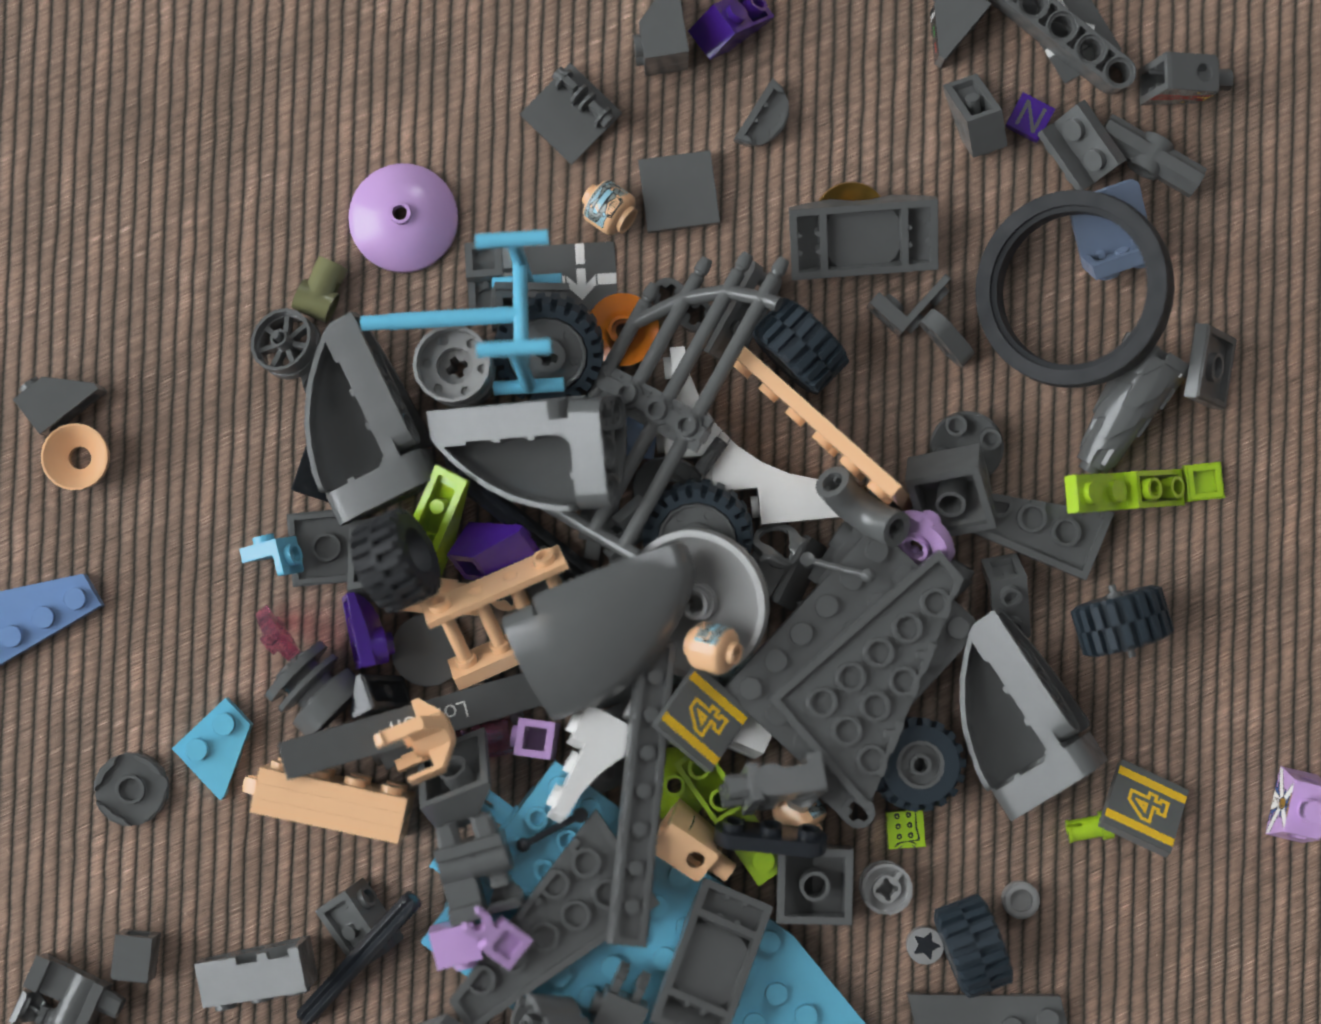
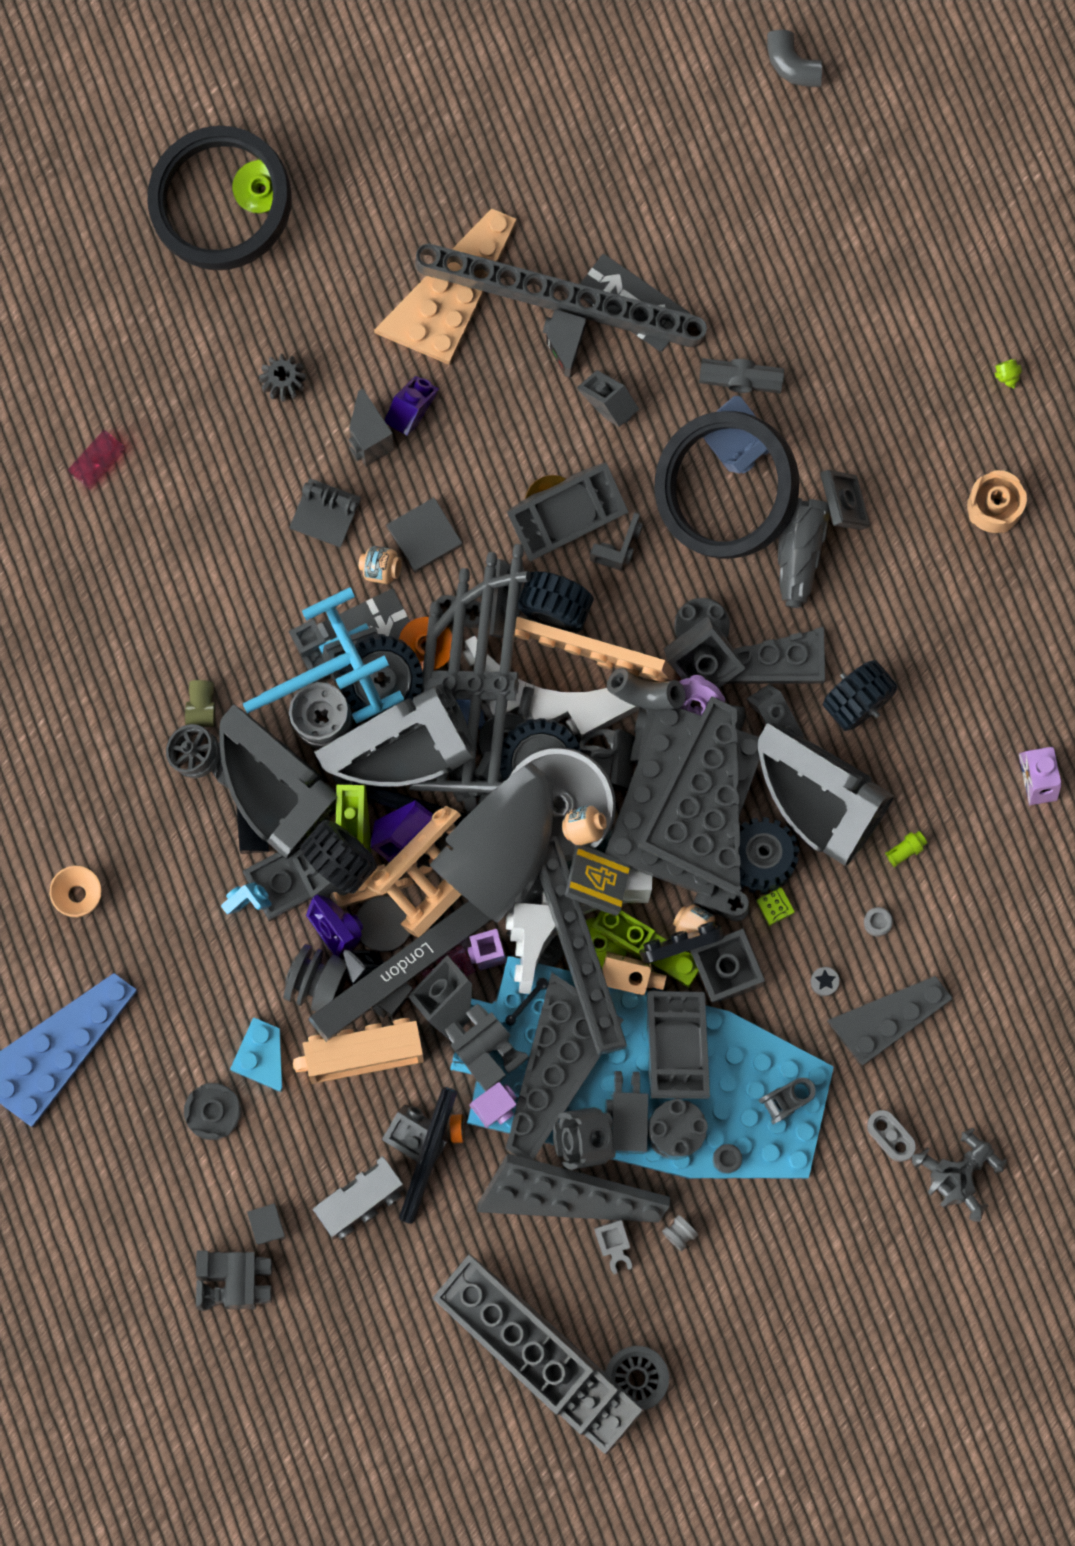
camera: 25 degrees left, 10 degrees down
(55, 401) = (44, 859): dark grey slope -> none
(274, 635) = (272, 953): clear pink plate -> none
(409, 936) = (457, 1128): none -> orange tile
(412, 241) = (240, 650): lavender dish -> none
(429, 736) = (413, 969): light nougat piece -> none
(500, 940) = (524, 1084): lavender plate -> none
(766, 118) = (464, 459): dark grey plate -> none
(772, 784) = (666, 901): dark grey hips -> none
(808, 561) = (625, 744): dark grey hinge -> none
(885, 887) = (779, 952): light grey wheel -> none
(947, 337) = (654, 555): dark grey beam -> none
(973, 946) = (856, 960): black wheel -> none
(1029, 117) = (646, 384): dark purple tile -> none
(1081, 146) = (690, 388): dark grey bracket -> none
(1124, 491) = (823, 608): lime slope -> none
(1143, 808) = (934, 819): dark grey tile -> none
(1182, 79) = (739, 315): dark grey torso -> none
(1203, 481) = (877, 581): lime tile -> none

